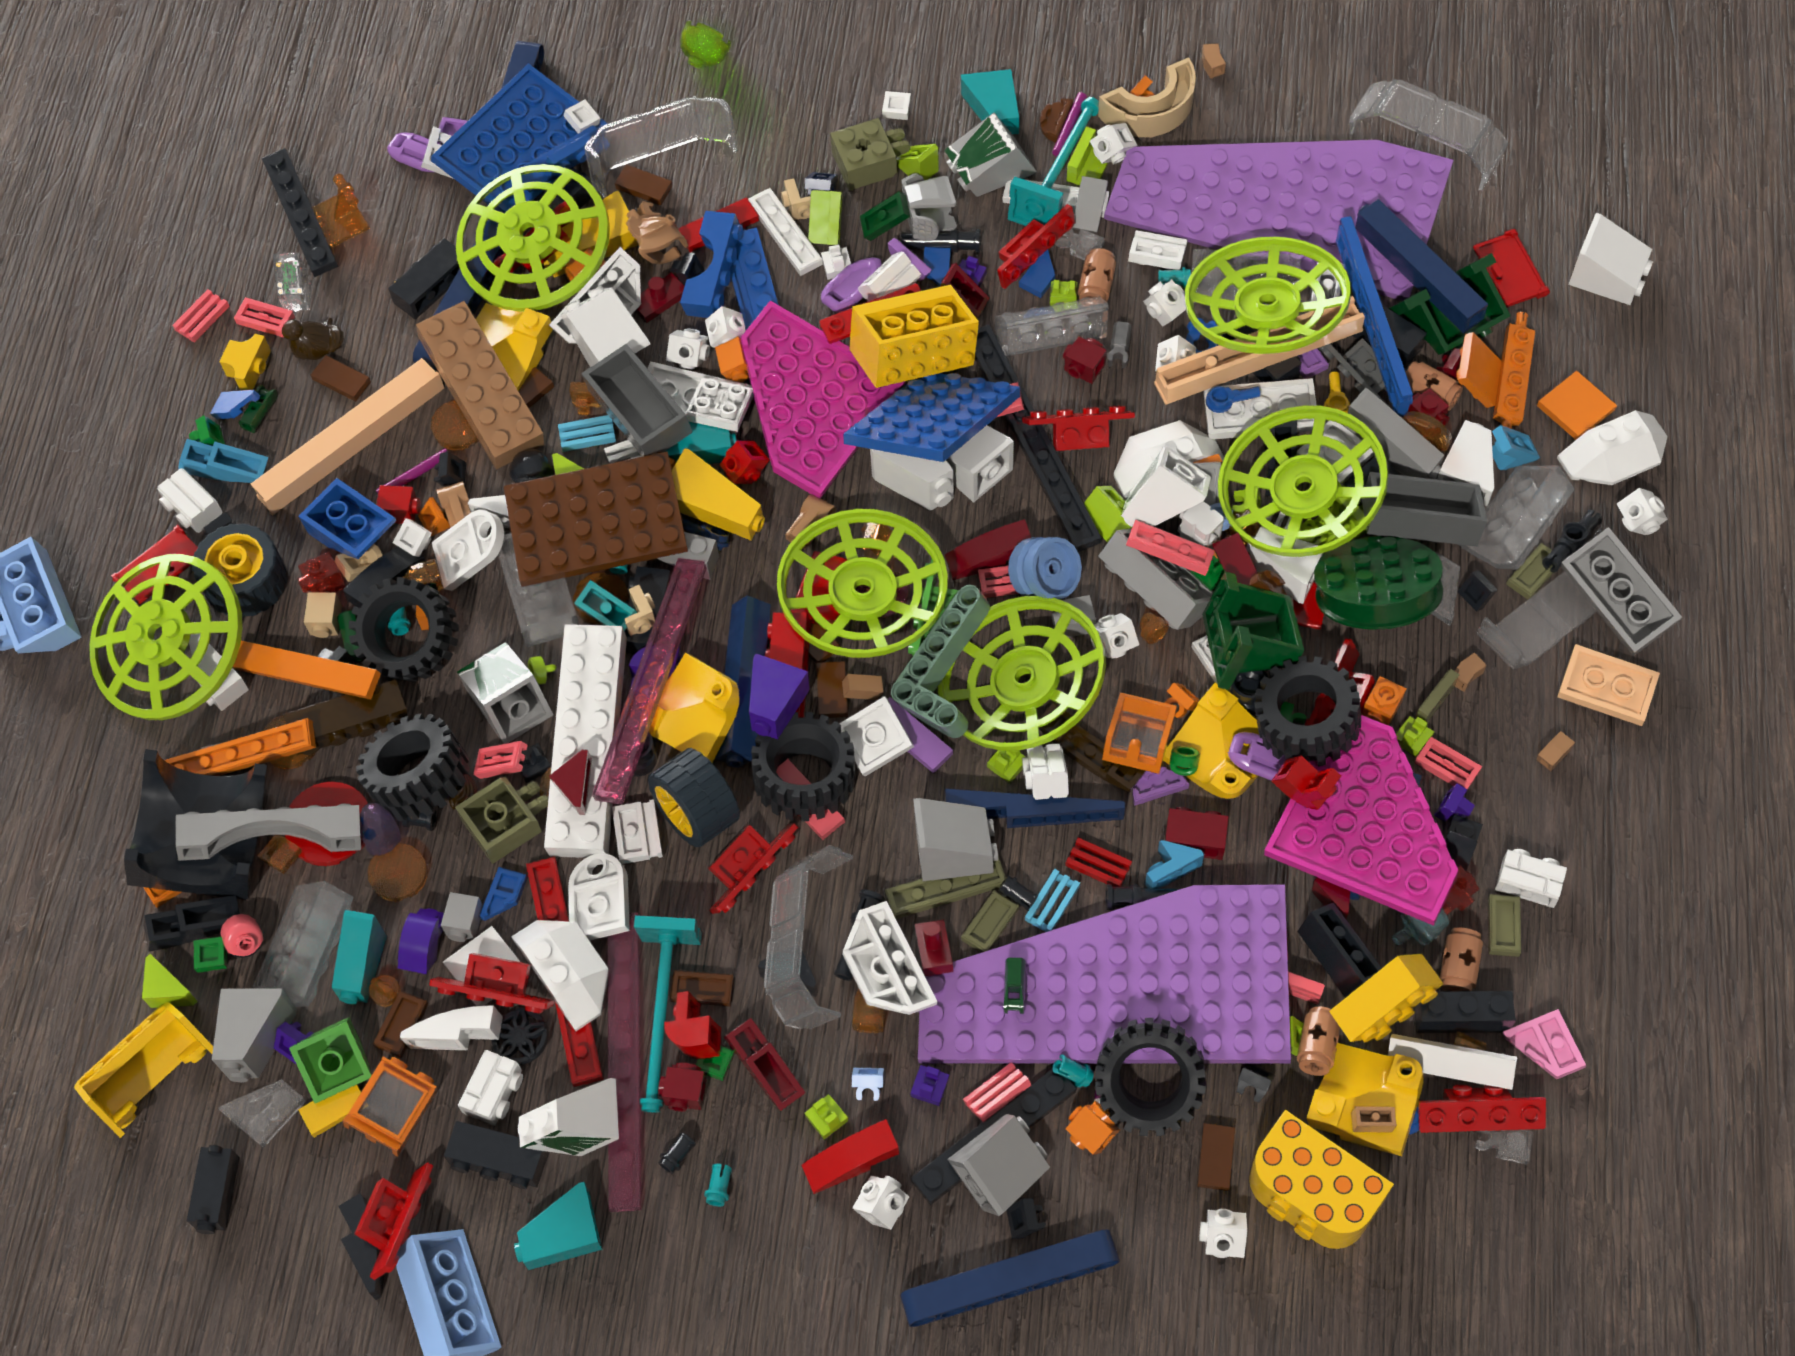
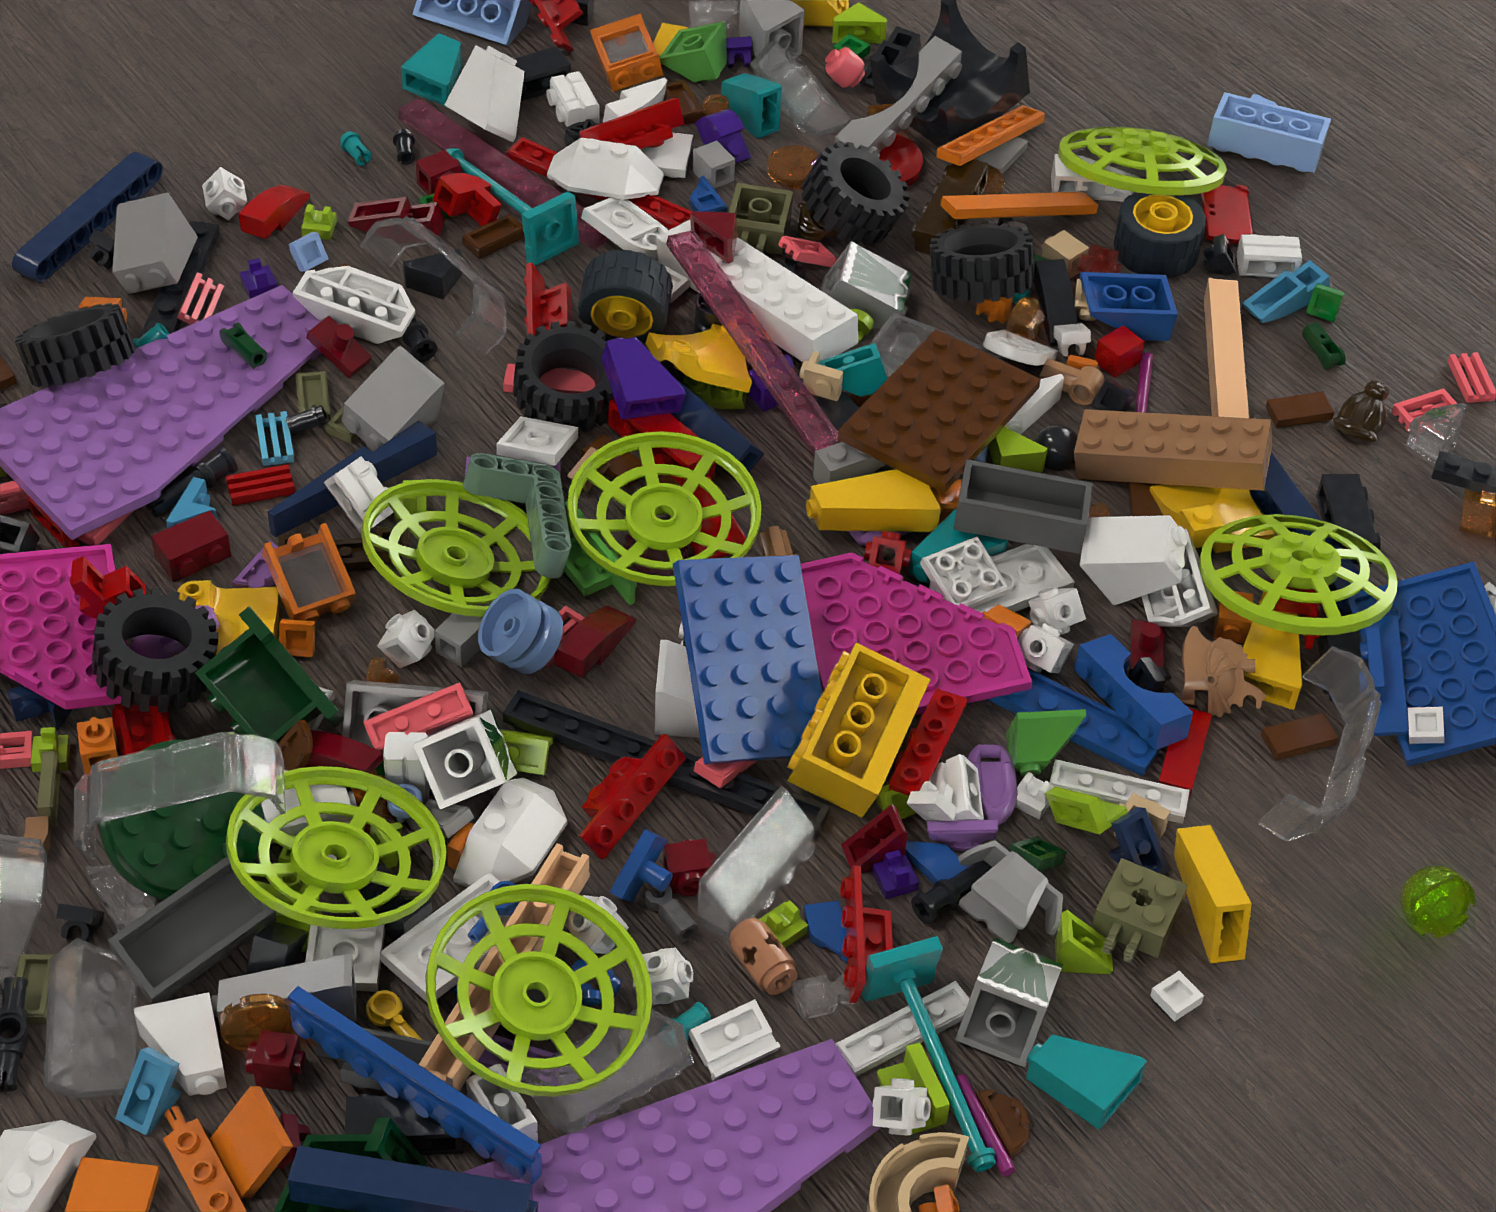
camera: 130 degrees right, 15 degrees down
(231, 402) = (1344, 331): tile -> none
(245, 360) = (1381, 360): yellow brick -> none
(799, 270) = (1040, 736): none -> bright green slope
(811, 132) = (1213, 893): none -> yellow slope
(918, 270) = (933, 804): none -> white tile
(1090, 204) = (854, 1029): light grey tile -> none
(1118, 367) = (642, 868): none -> blue tile
(1184, 757) = (249, 581): green tile -> none
(1389, 560) = (175, 776): none -> clear windscreen
(1422, 375) = (315, 1097): nougat piece -> none

